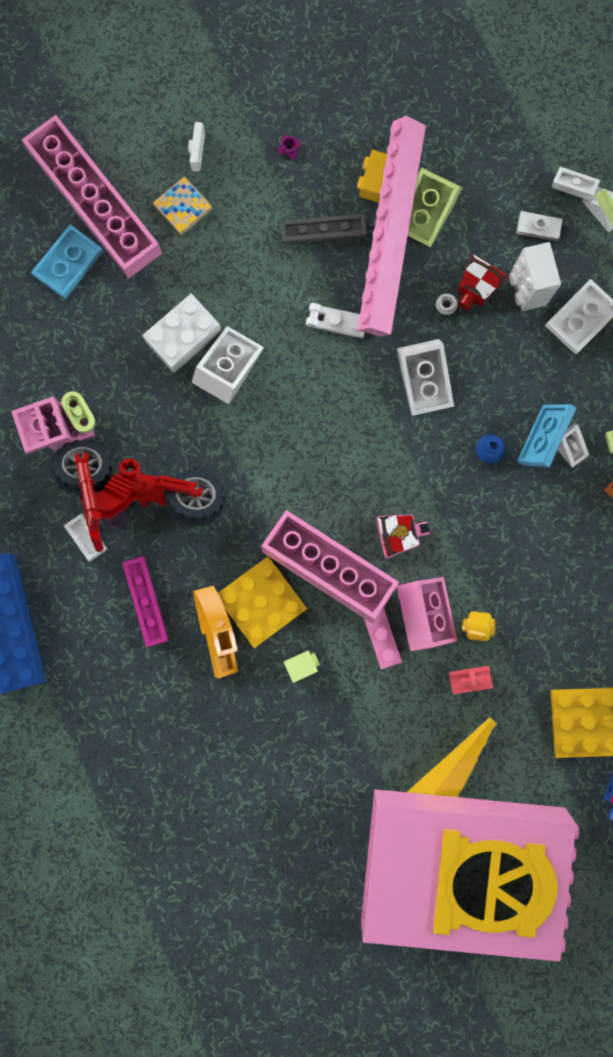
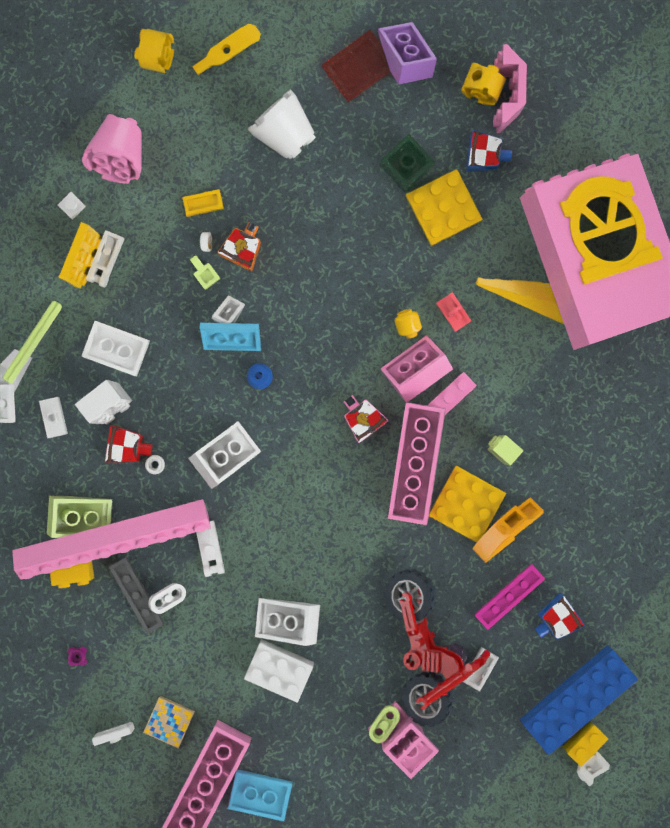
camera: 115 degrees left, 5 degrees up
(98, 642) = (558, 618): none -> torso
(306, 255) = (166, 599): none -> white plate

